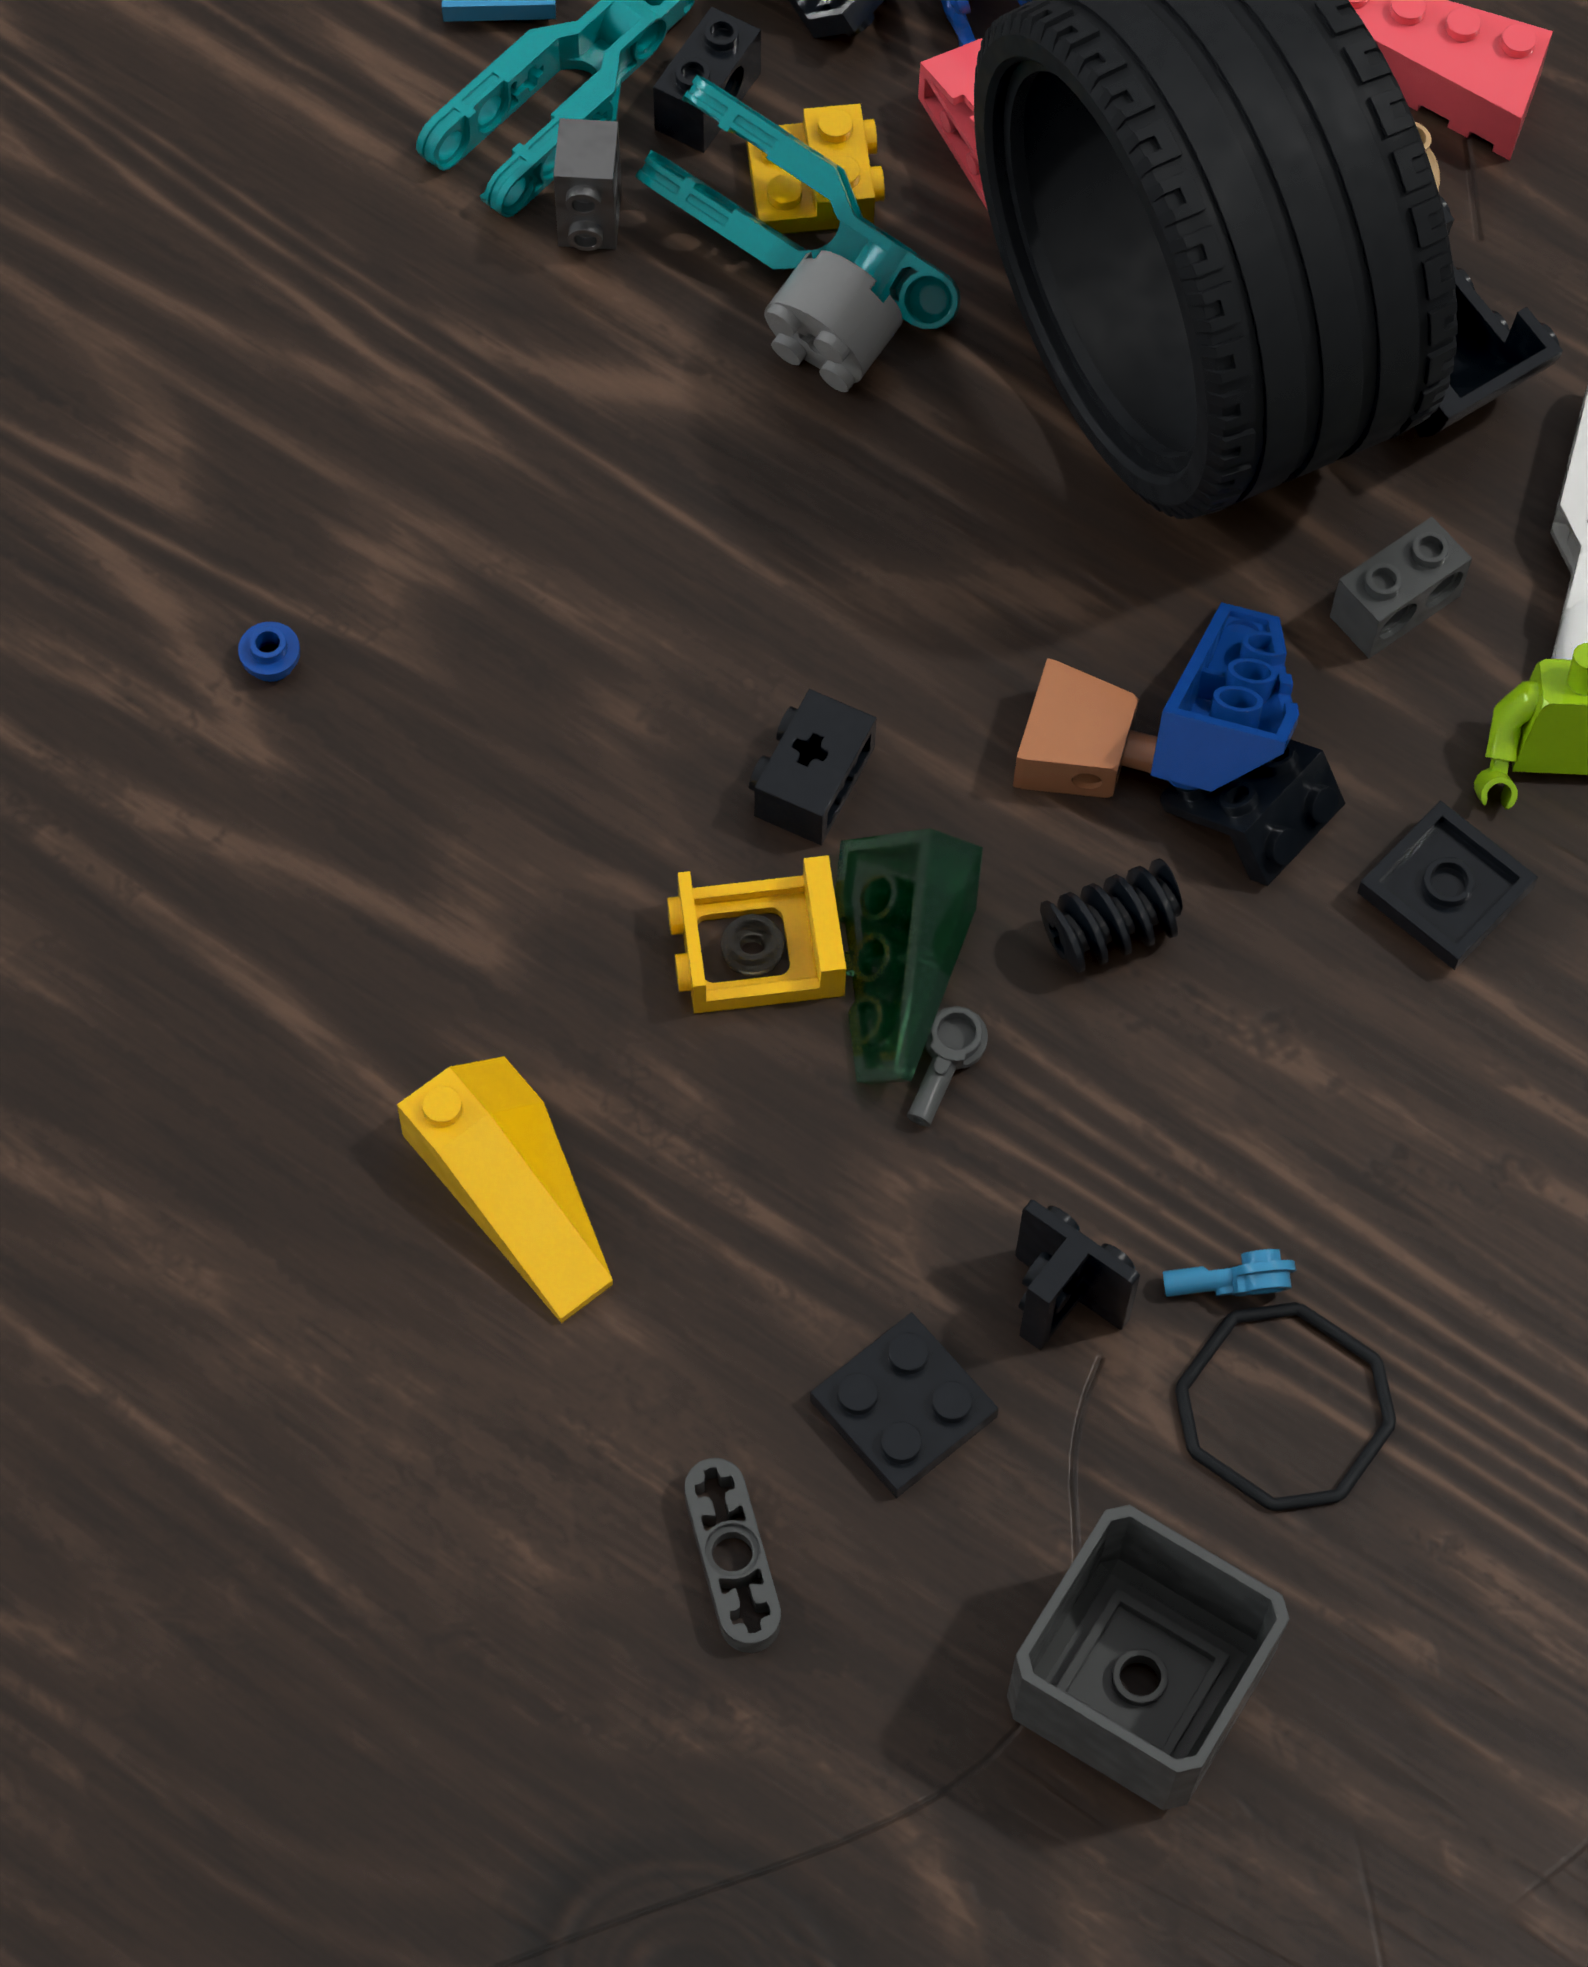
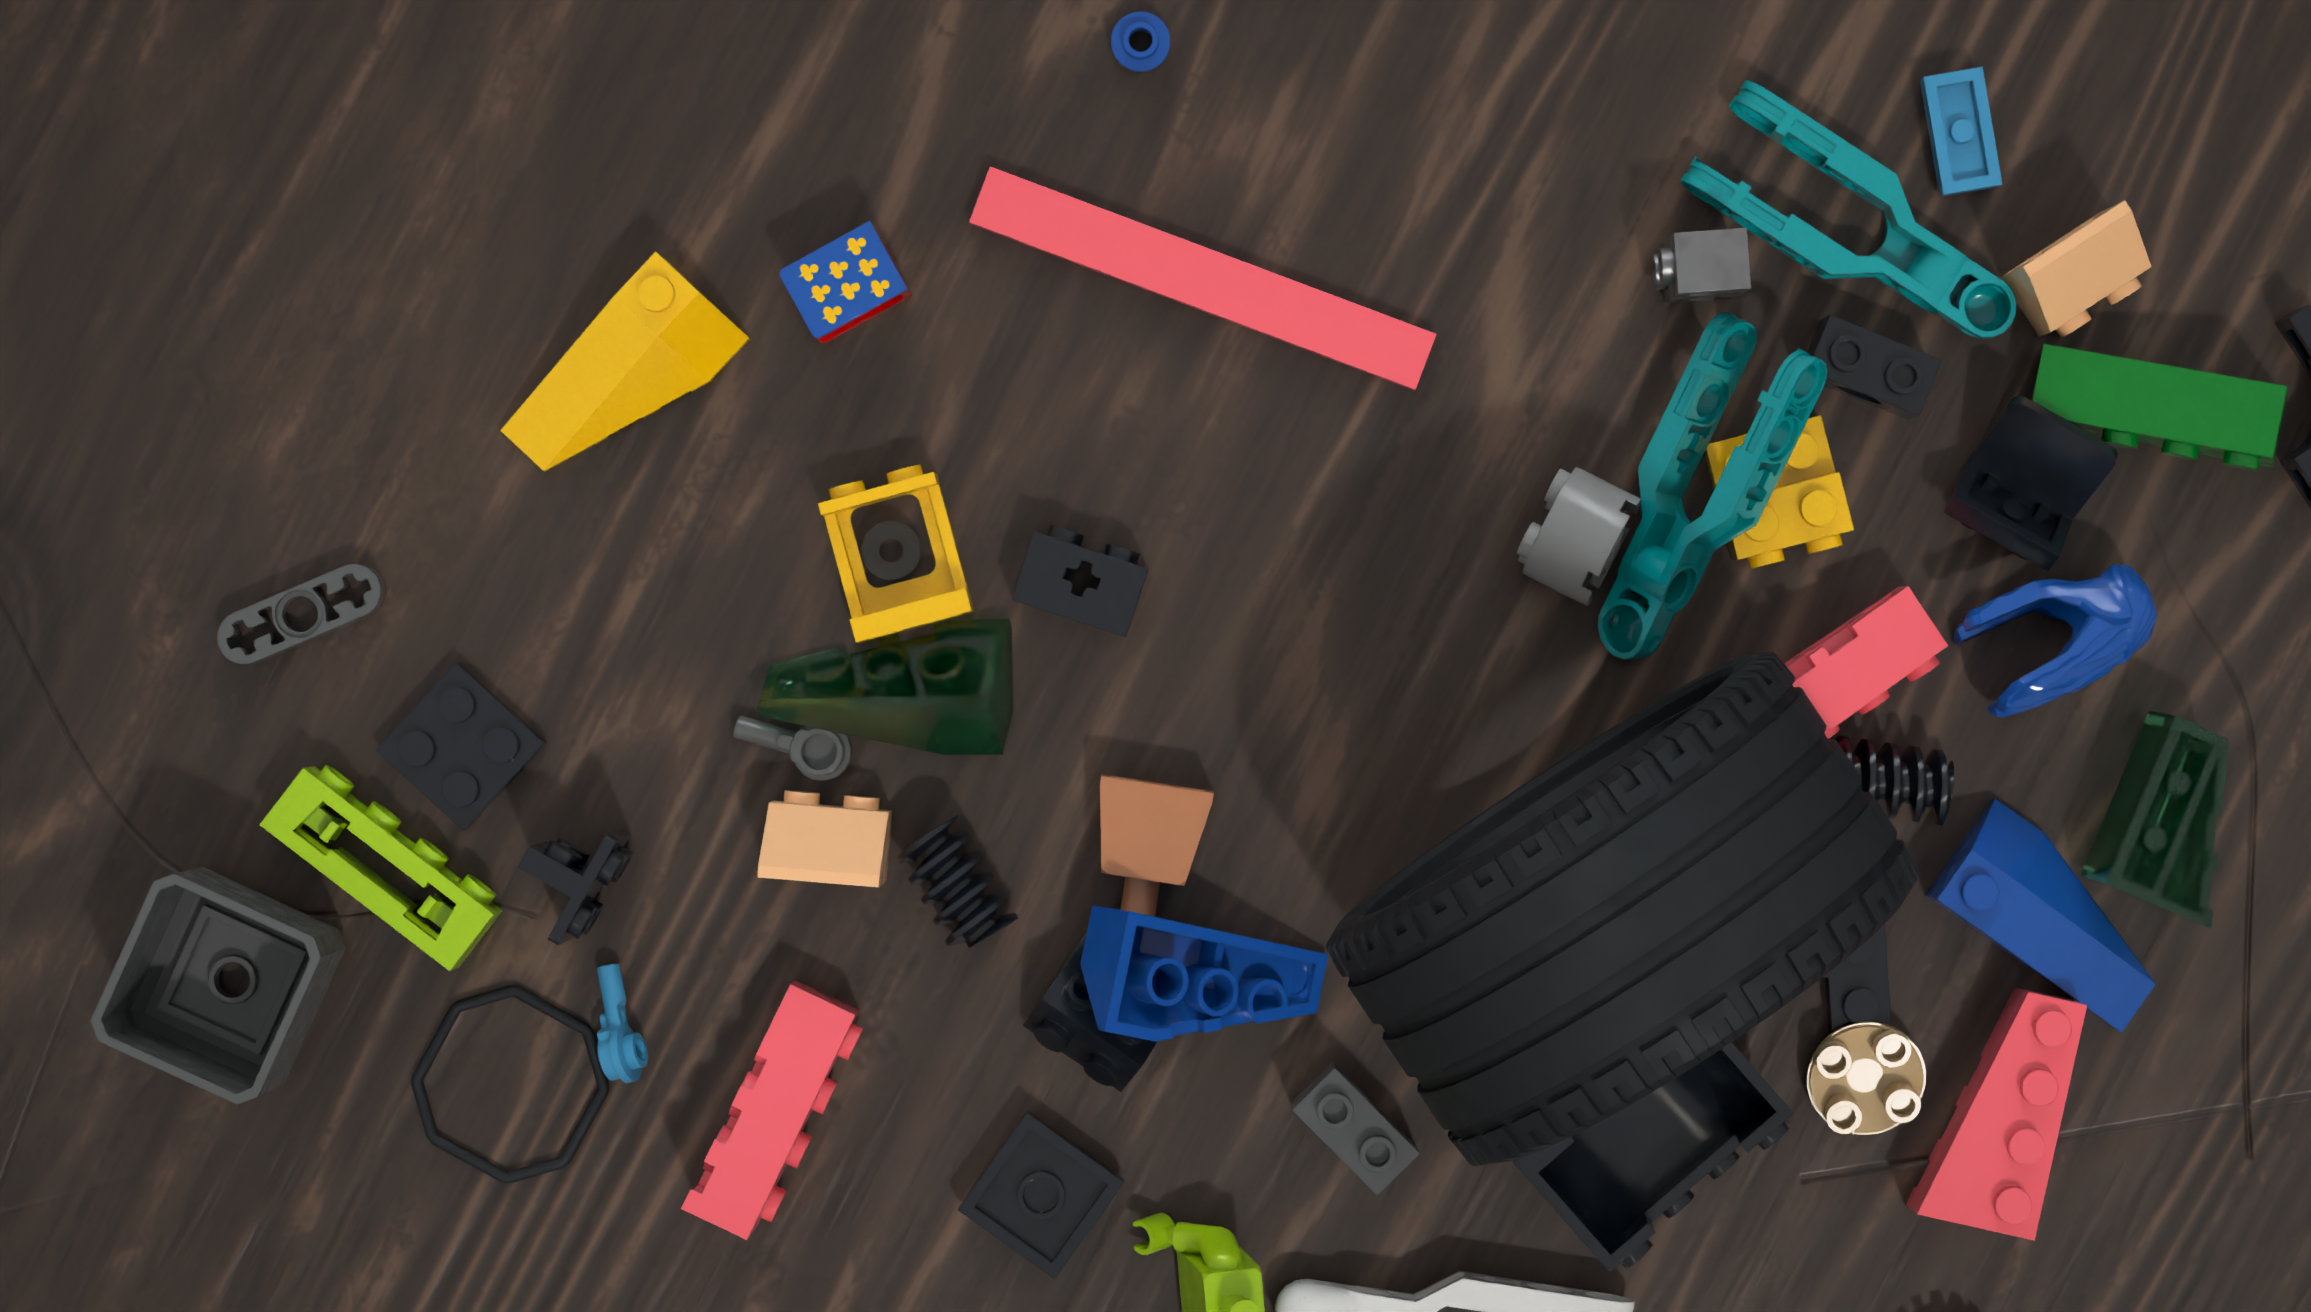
camera: 85 degrees right, 25 degrees up
(464, 940) = (845, 283): none -> blue piece
(516, 633) = (1202, 278): none -> coral tile
(1053, 1029) = (826, 841): none -> light nougat slope
(1103, 1420) = (305, 805): none -> lime brick
(1340, 1122) = (773, 1110): none -> coral wedge

